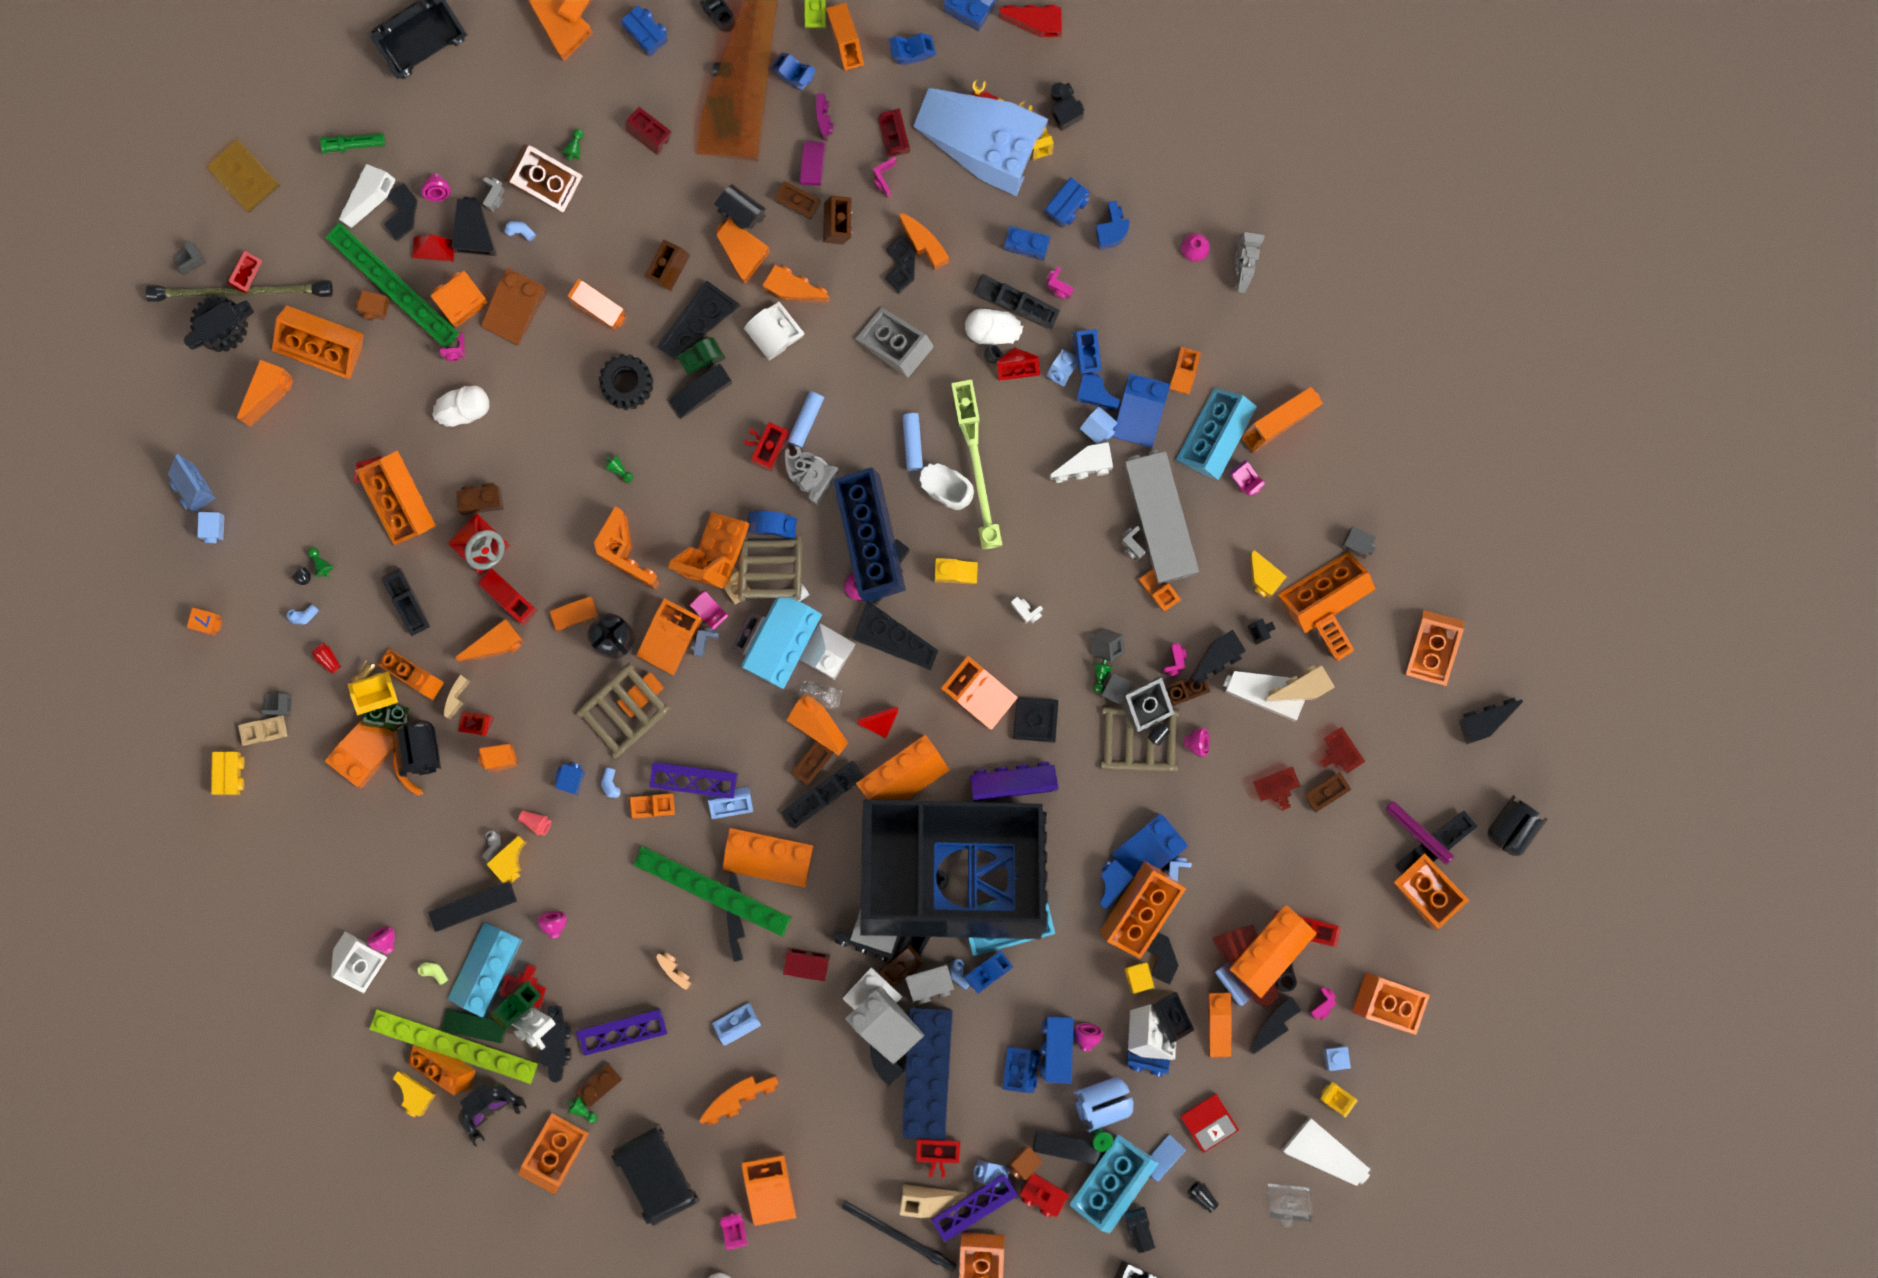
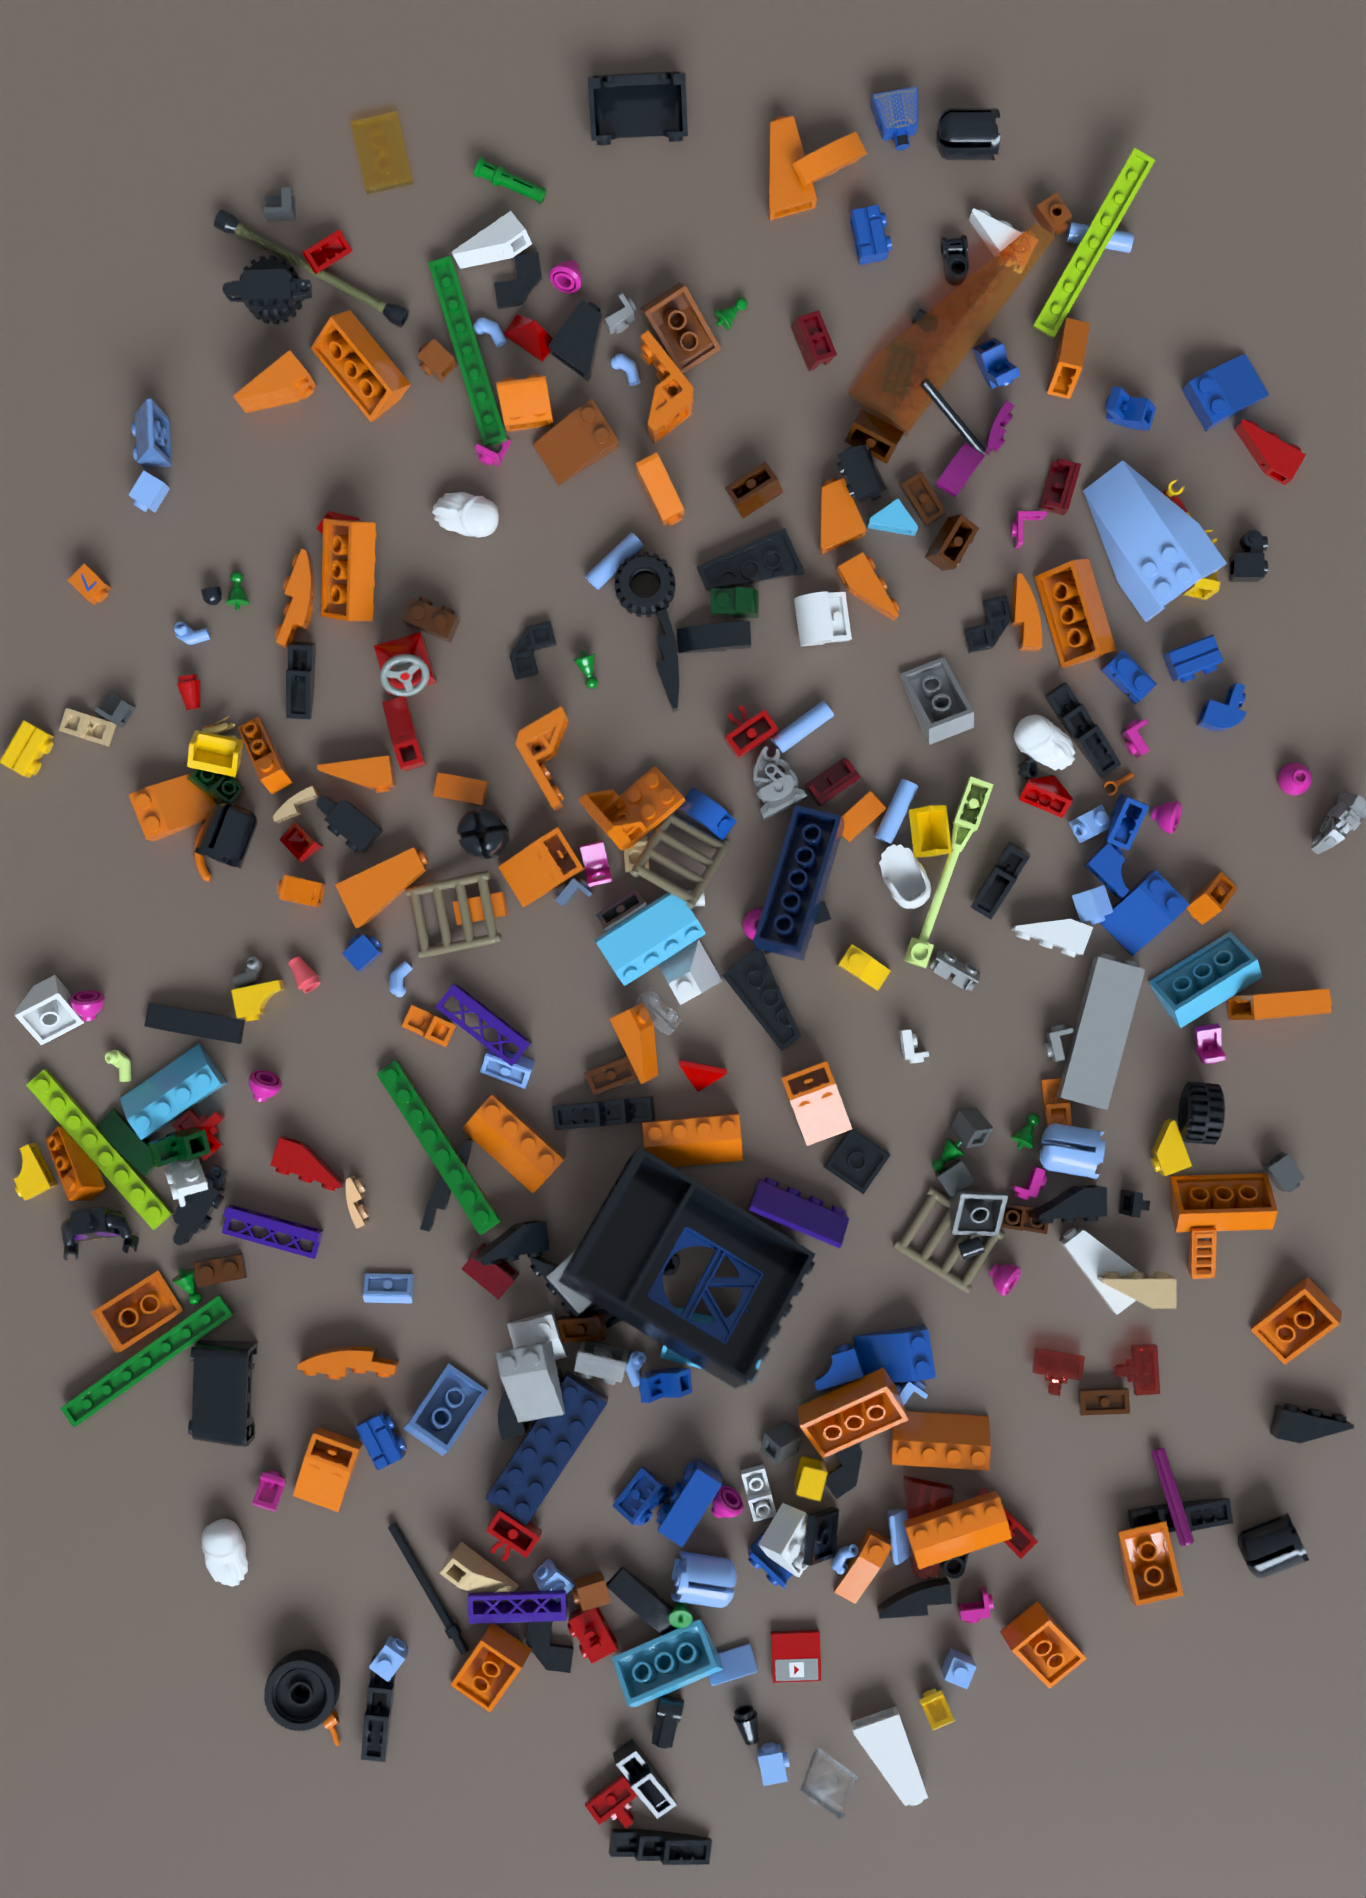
camera: 30 degrees right, 5 degrees up
(368, 535) = (301, 590): none -> orange slope
(400, 258) = (488, 326): none -> light blue arm
(505, 687) = (350, 823): none -> black hinge
(554, 721) = (378, 886): none -> orange slope
(564, 470) = (533, 638): none -> black tile
(566, 230) = (672, 397): none -> orange bracket
(583, 1187) = (147, 1361): none -> green plate
(591, 379) = (609, 564): none -> light blue piece
(611, 963) = (303, 1161): none -> red slope
(679, 432) = (669, 668): none -> black slope
(736, 172) = (876, 433): none -> reddish brown brick
(783, 127) = (951, 415): none -> black bar
(784, 227) = (894, 519): none -> medium azure slope
(797, 1142) = (381, 1439): none -> blue brick
(815, 925) = (519, 1239): none -> black slope
(833, 1090) = (445, 1410): none -> medium blue slope
(852, 447) = (832, 781): none -> dark red hinge
(888, 459) = (862, 815): none -> orange slope
(946, 441) = (930, 831): none -> yellow panel
(959, 219) = (1075, 612): none -> orange slope
(1020, 447) = (1000, 880): none -> black slope
(1023, 1233) = (552, 1656): none -> black tile
(1033, 533) = (947, 963): none -> light grey hinge
(1066, 325) = (1118, 783): none -> orange hand
(1102, 966) = (781, 1442): none -> dark grey panel
(1108, 1014) = (758, 1492): none -> white slope
(1117, 328) = (1168, 816): none -> dark pink brick
(1150, 628) = (1025, 1135): none -> green piece
(1190, 617) = (1072, 1150): none -> light blue cylinder
(1199, 1022) = (843, 1553): none -> light blue arm
(1222, 893) = (941, 1441): none -> orange slope
(1239, 1214) = (773, 1763): none -> light blue brick
(1269, 533) = (1201, 1113): none -> black tyre

